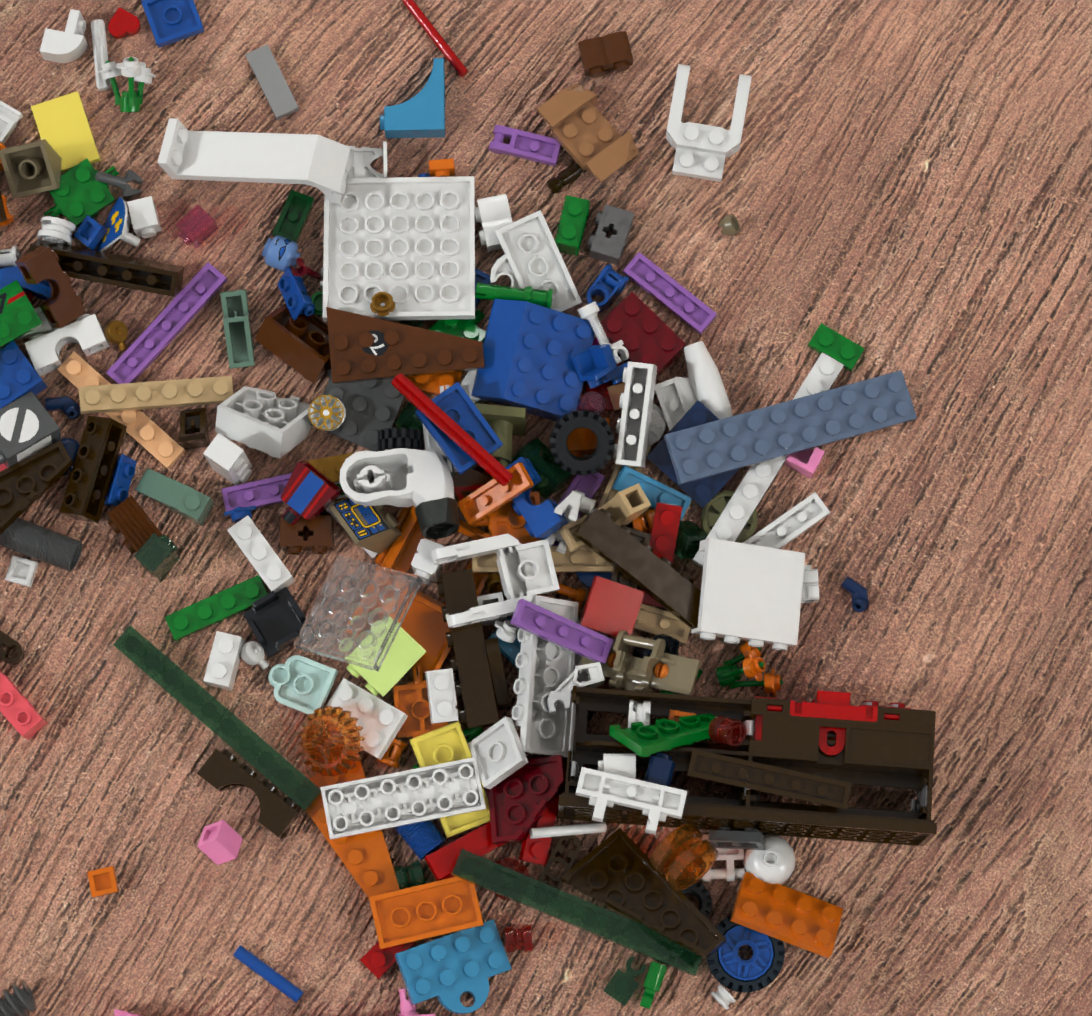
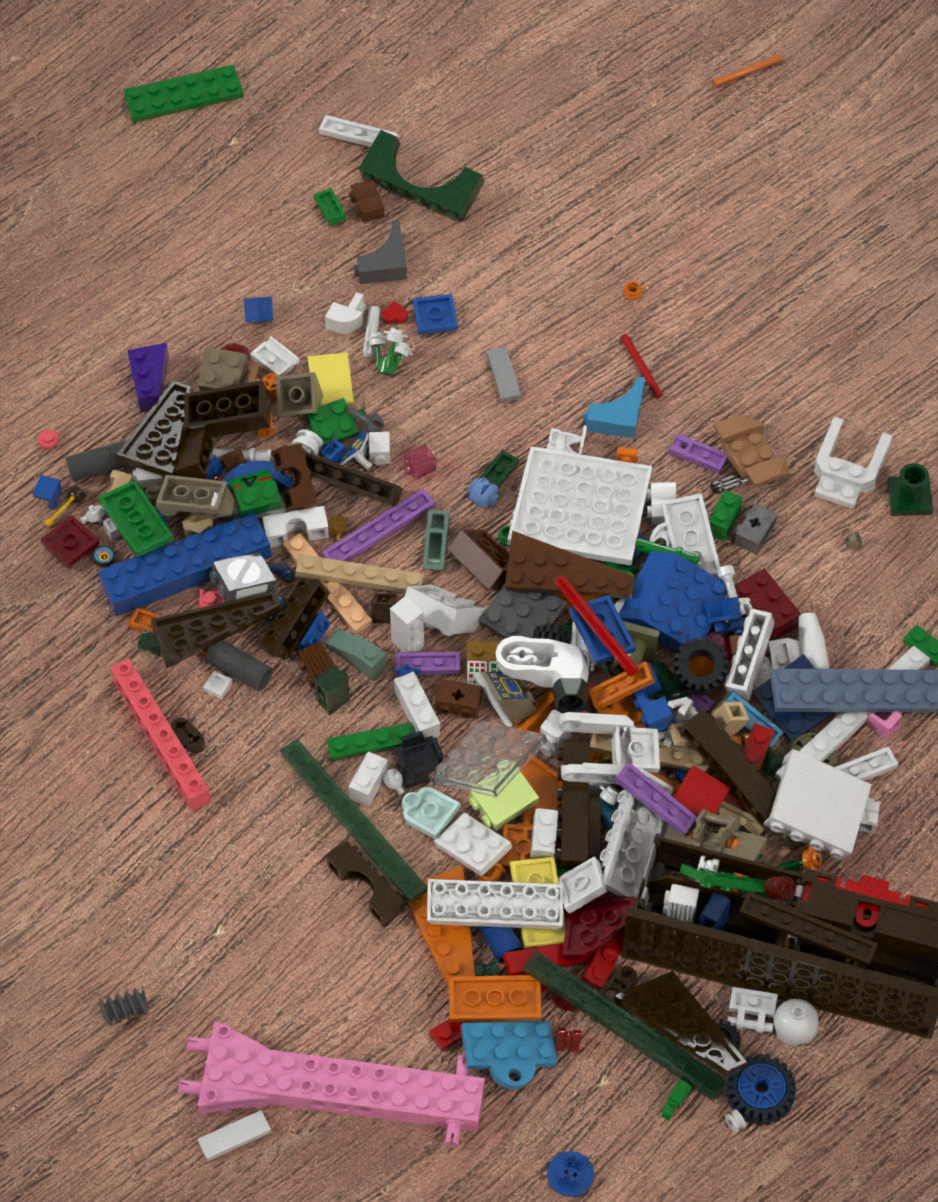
camera: 10 degrees right, 20 degrees down
(103, 881) = (227, 927): orange plate -> none
(220, 842) = (332, 916): bright pink panel -> none
(256, 158) = (480, 417): white panel -> none
(268, 974) = (350, 1028): blue piece -> none
(295, 295) = (488, 523): blue hinge -> none
(304, 270) = (499, 507): dark red hand -> none
(307, 493) = (466, 661): torso -> none
(327, 413) = (495, 609): wheel -> none
(328, 757) = (448, 858): clear orange gear -> none
(379, 346) = (550, 564): black sticker -> none
(382, 297) = (558, 536): pearl gold plate -> none
(563, 692) = (644, 847): white piece -> none
(567, 830) = (628, 962): white piece -> none
(605, 54) = (777, 400): reddish brown brick -> none
(608, 285) = (745, 565): blue piece -> none
(610, 789) = (706, 922): white hinge -> none
(622, 984) = (651, 1096): clear green plate -> none
(669, 293) = (795, 580): medium lavender plate -> none
(684, 856) = (723, 994): clear orange wheel -> none
(747, 839) = (771, 992): dark grey plate -> none
(784, 149) = (910, 491): none -> dark green plant
(787, 915) = (803, 1063): orange plate -> none
(858, 593) = (911, 831): dark blue arm -> none

